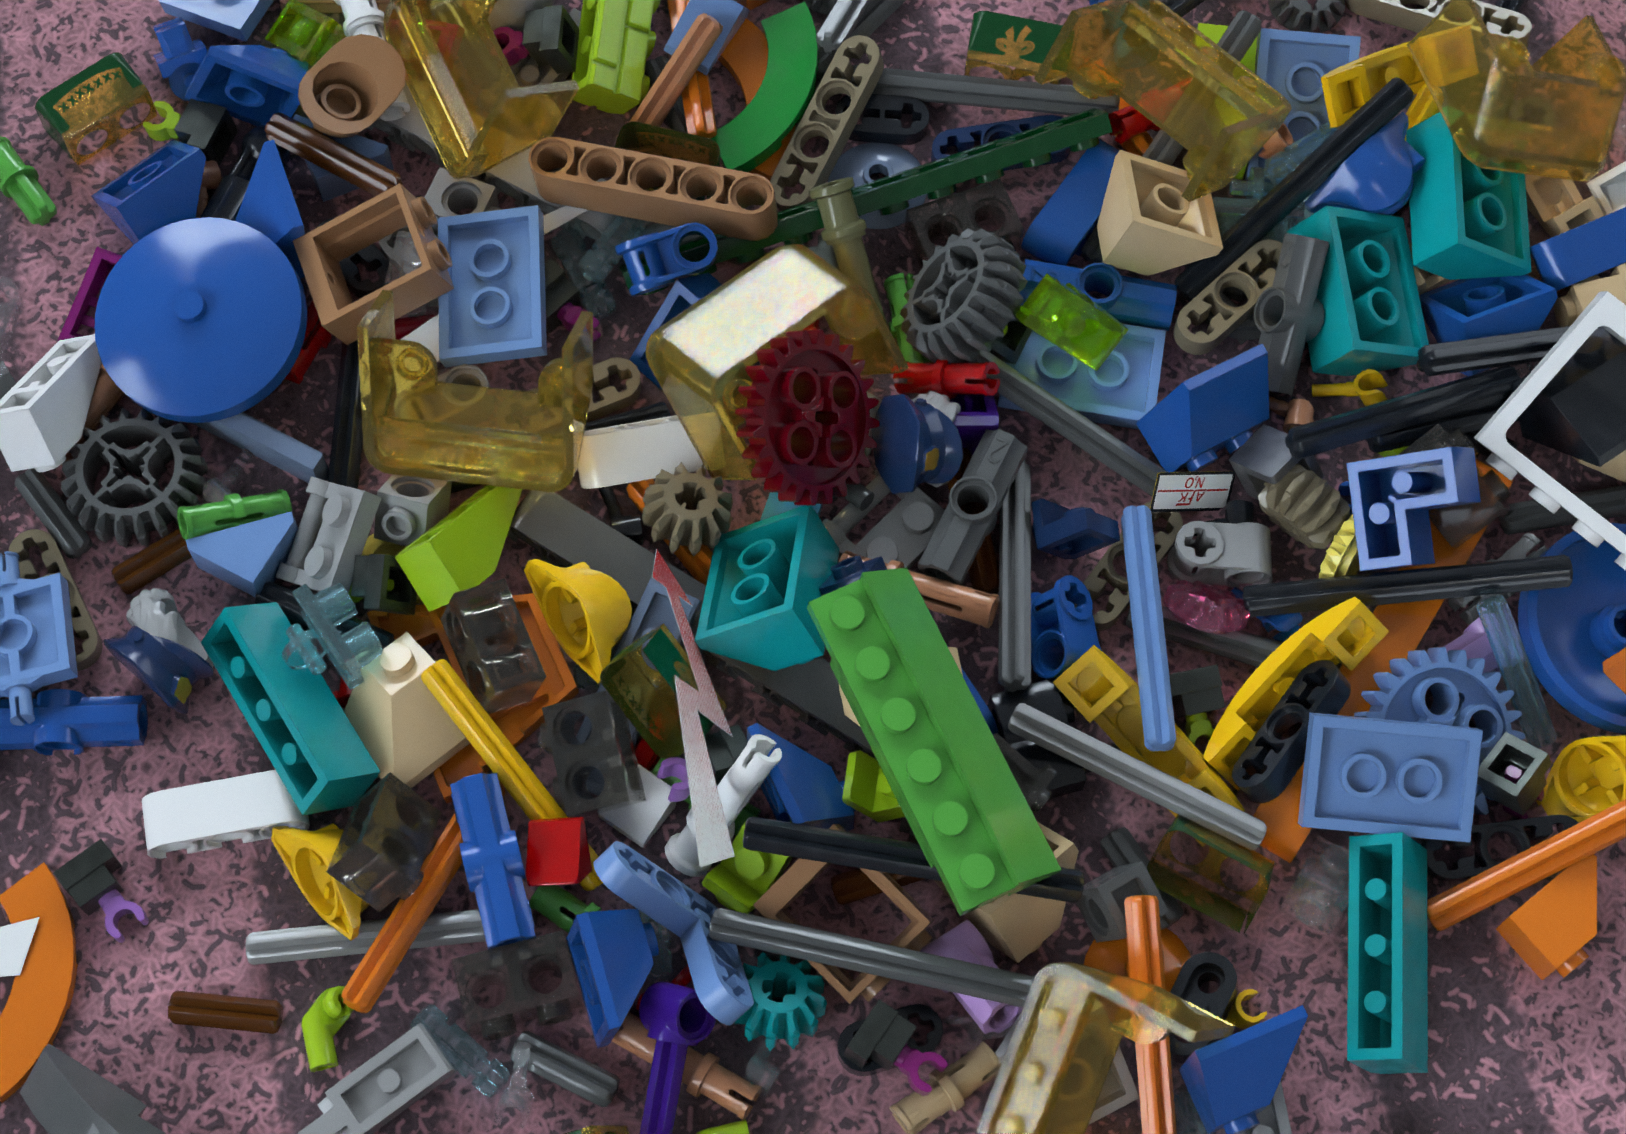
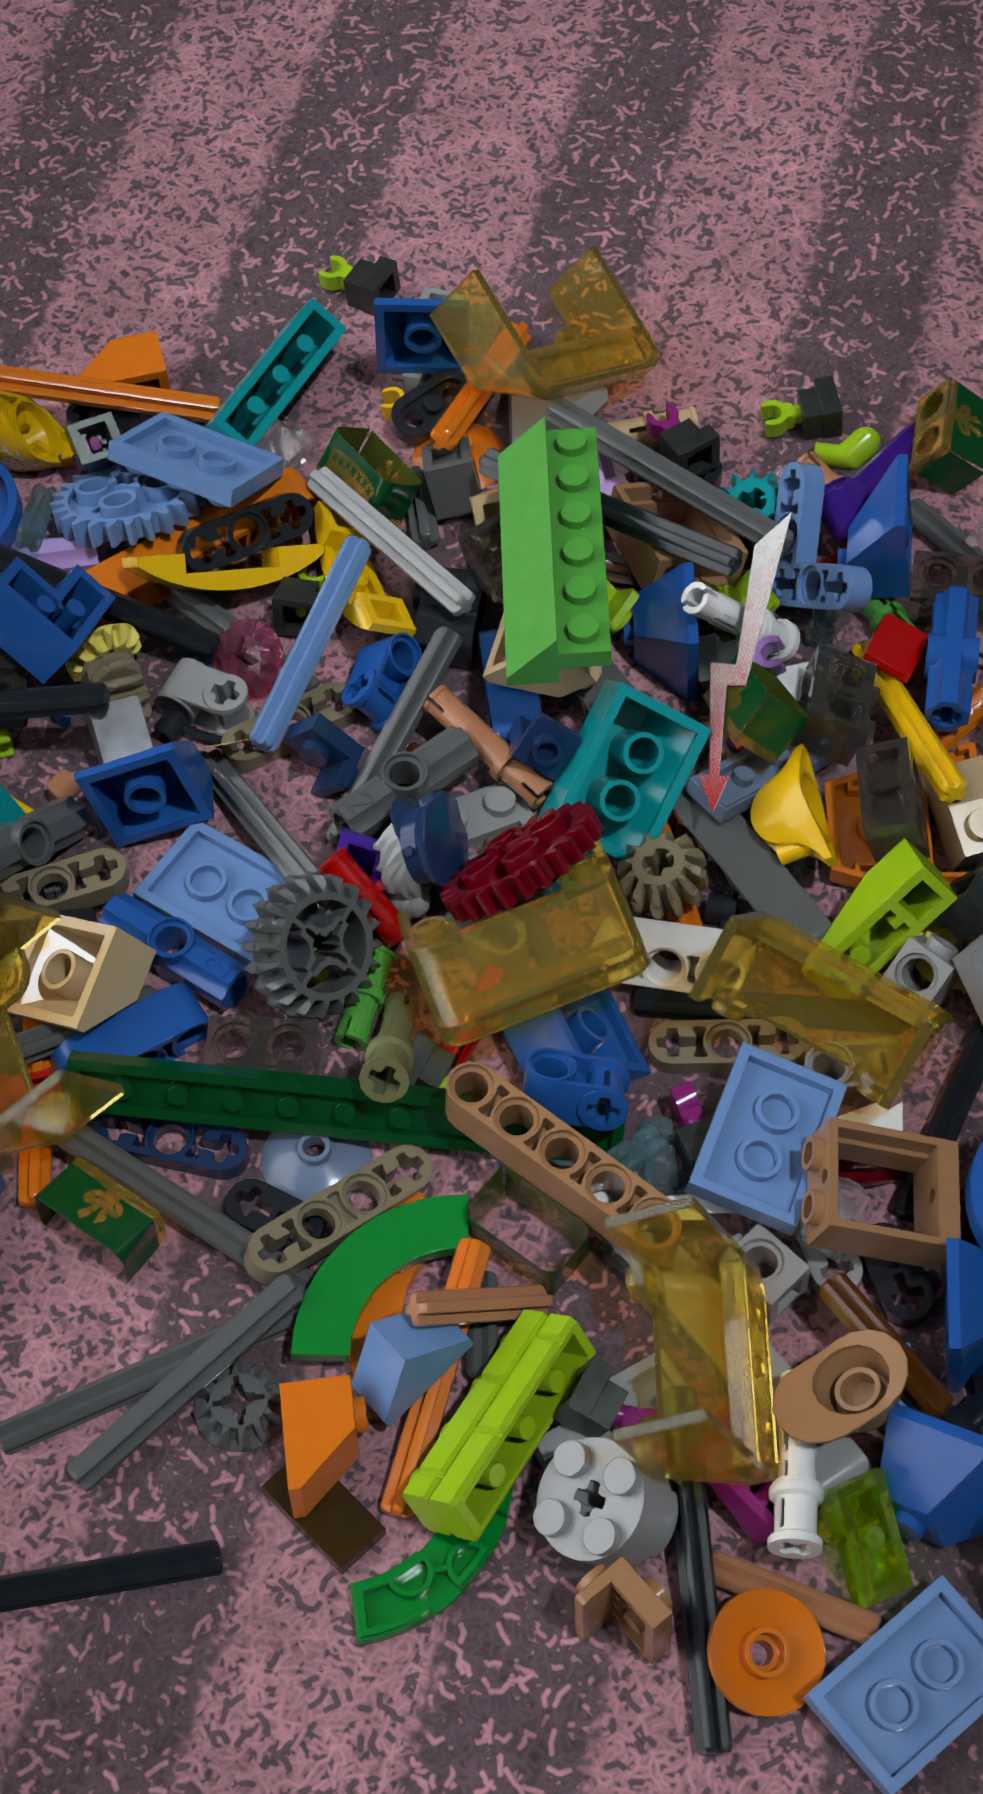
camera: 150 degrees left, 10 degrees down
(1071, 321) = (219, 904): clear neon green slope -> none

